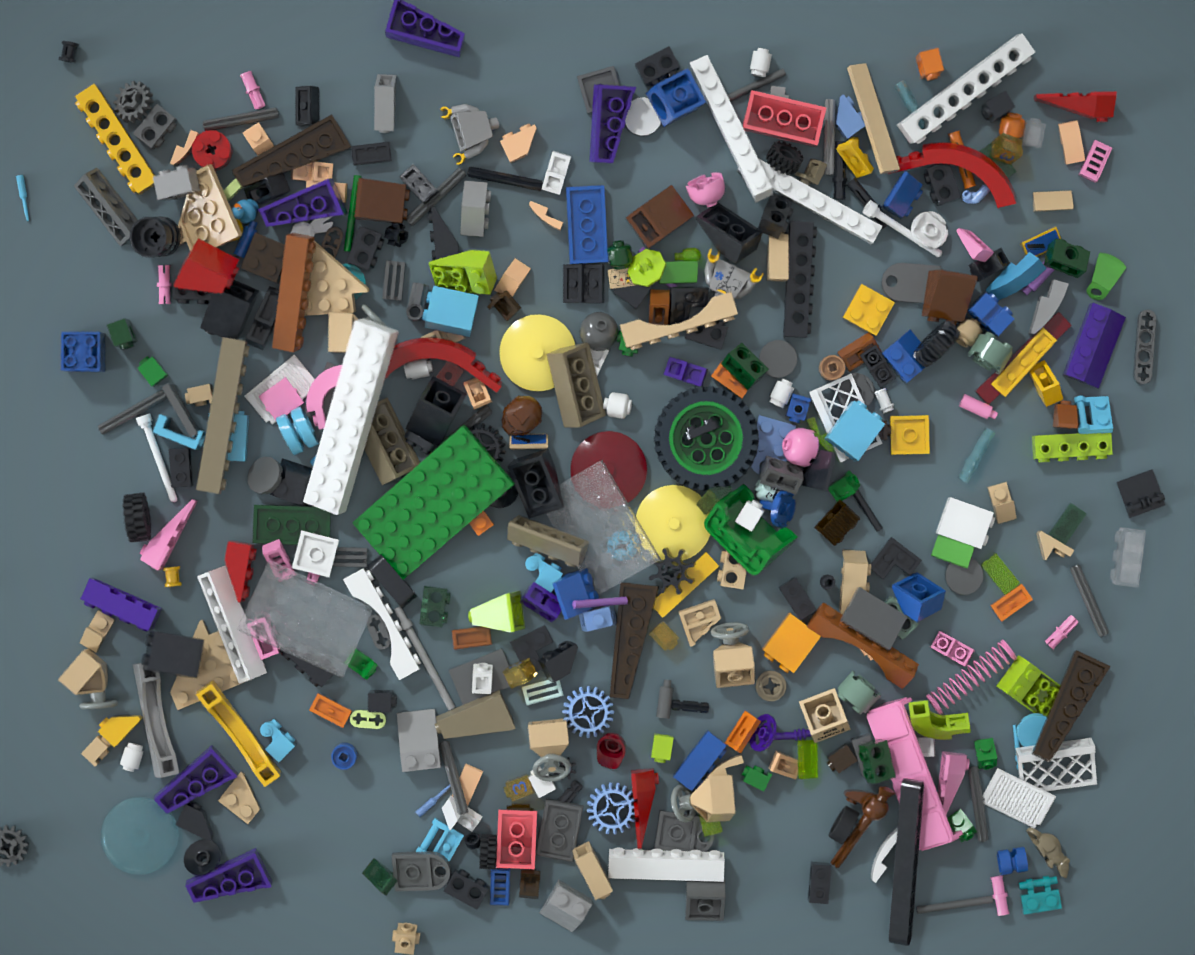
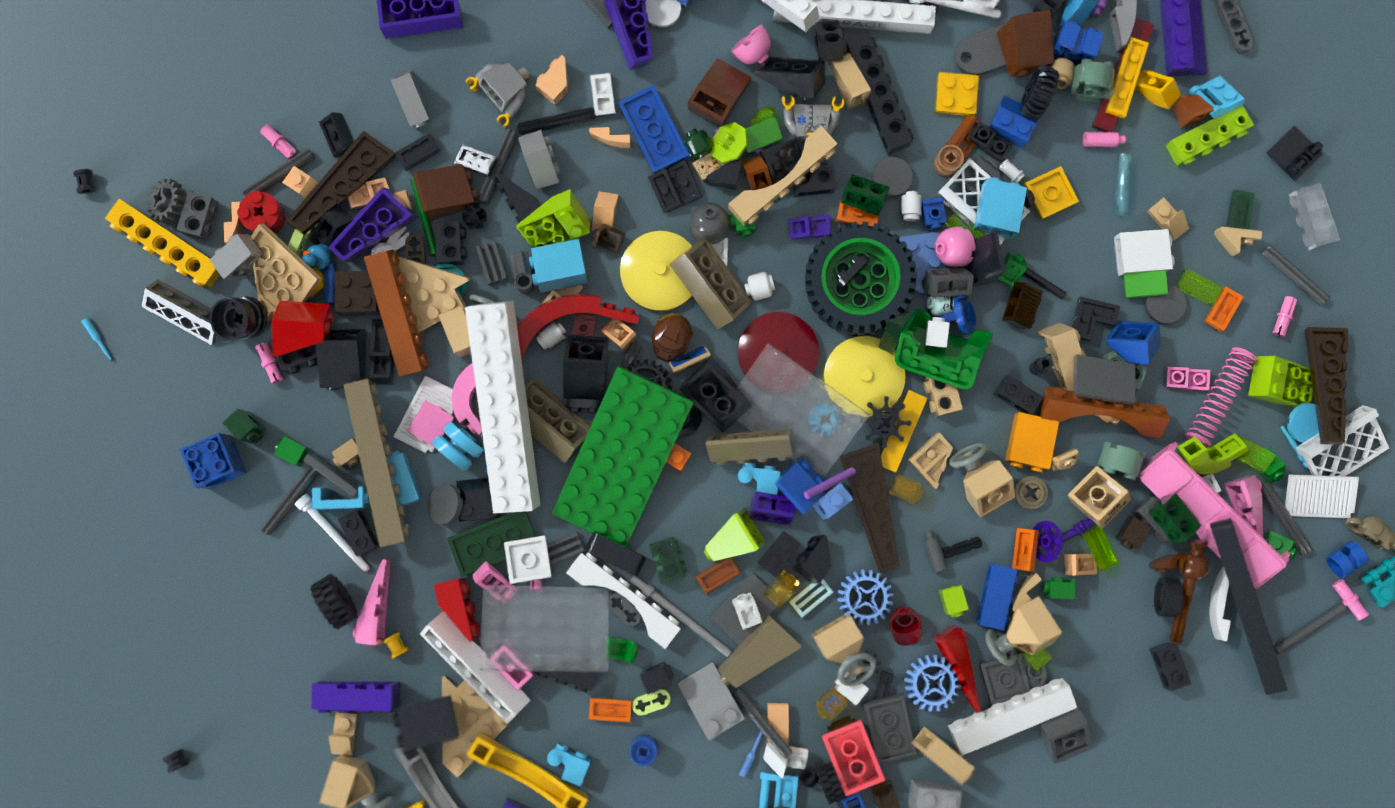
camera: 25 degrees left, 5 degrees down
(809, 671) = (1064, 460): none -> tan slope
(976, 740) = (1256, 456): none -> clear neon green slope

